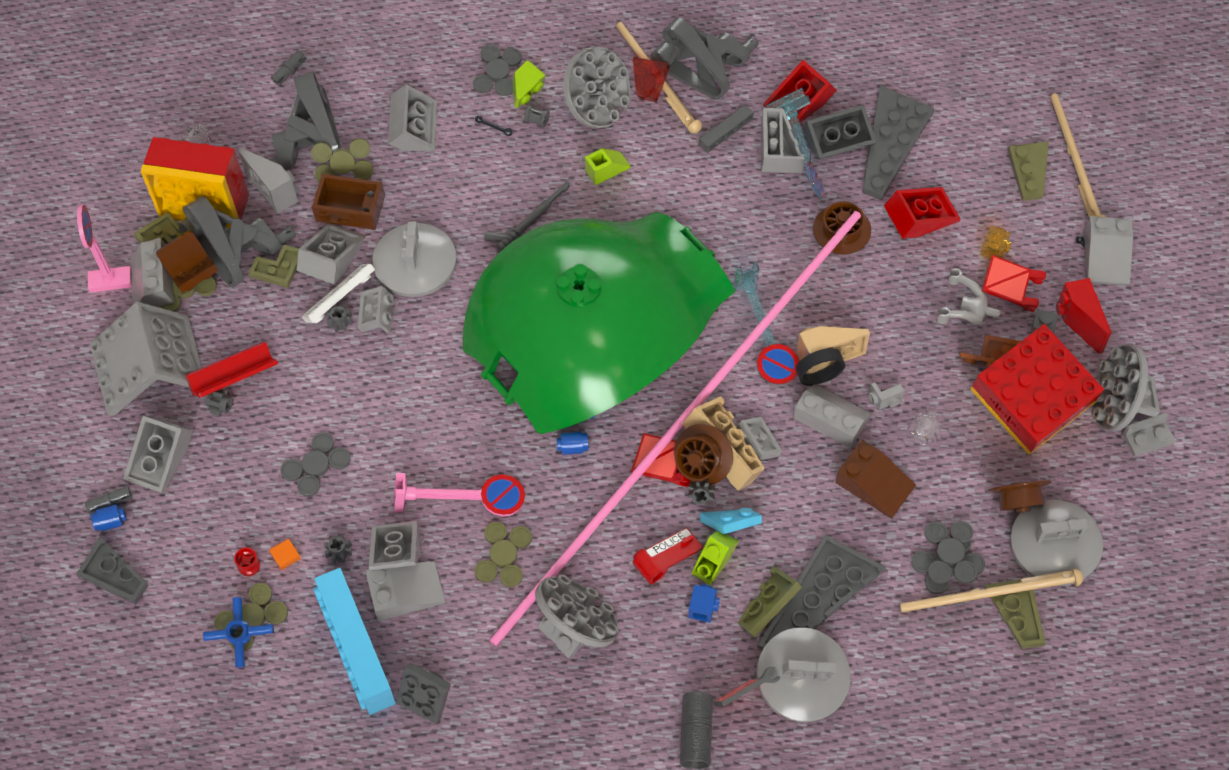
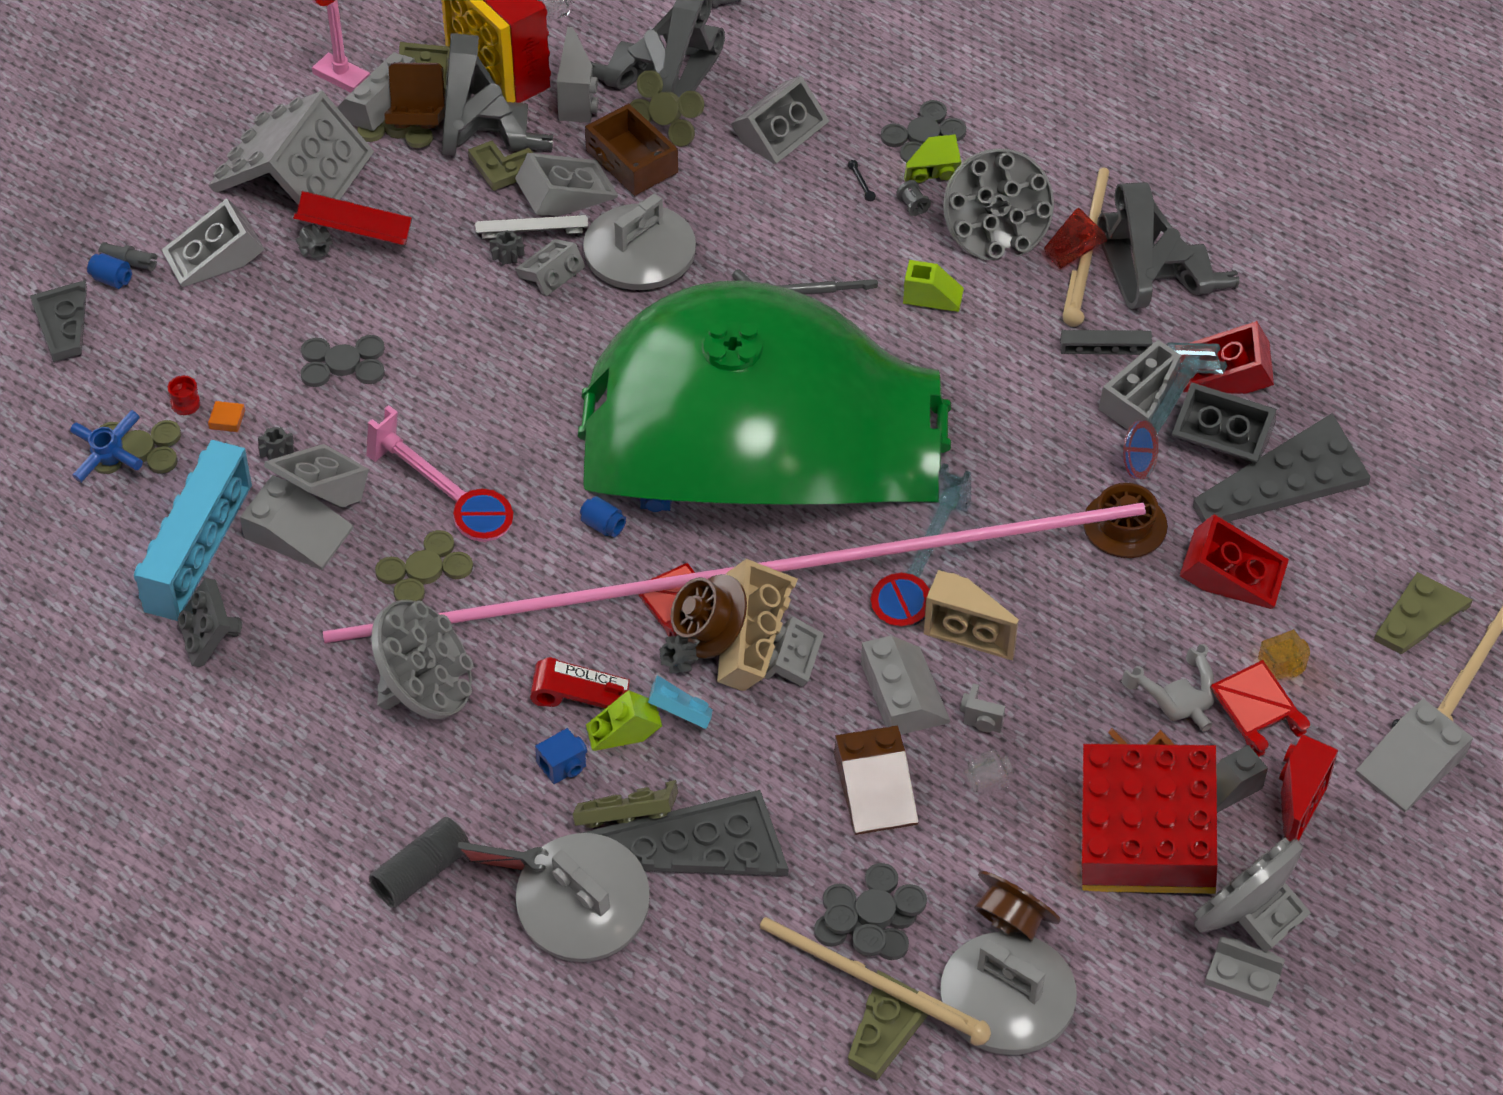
camera: 40 degrees right, 10 degrees down
(816, 358) = (942, 610): black tyre -> none

